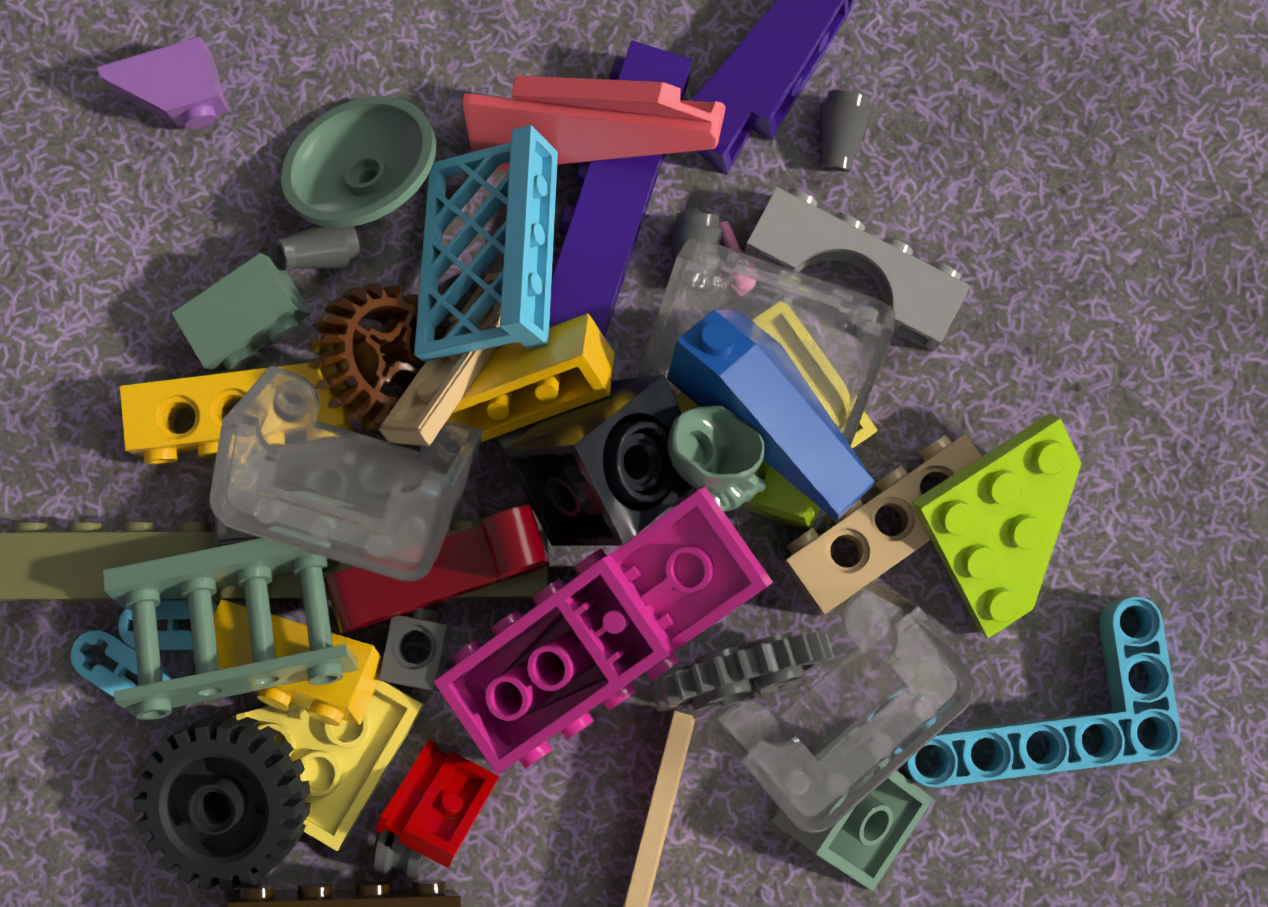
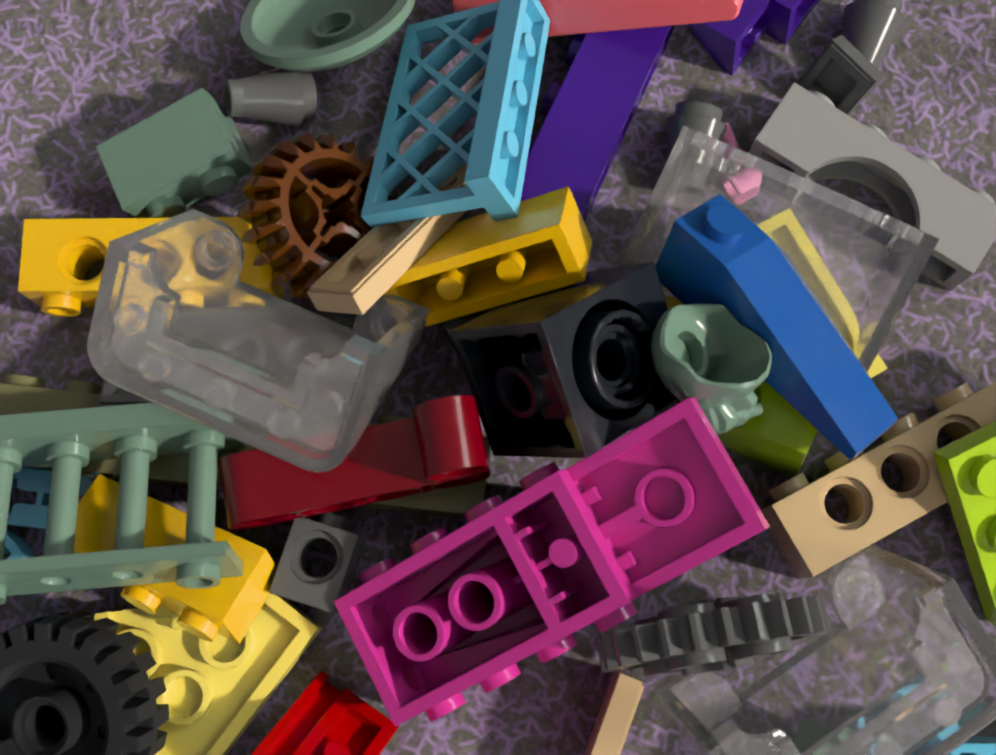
camera: 10 degrees right, 5 degrees down
(820, 173) = (842, 75): none -> dark grey tile

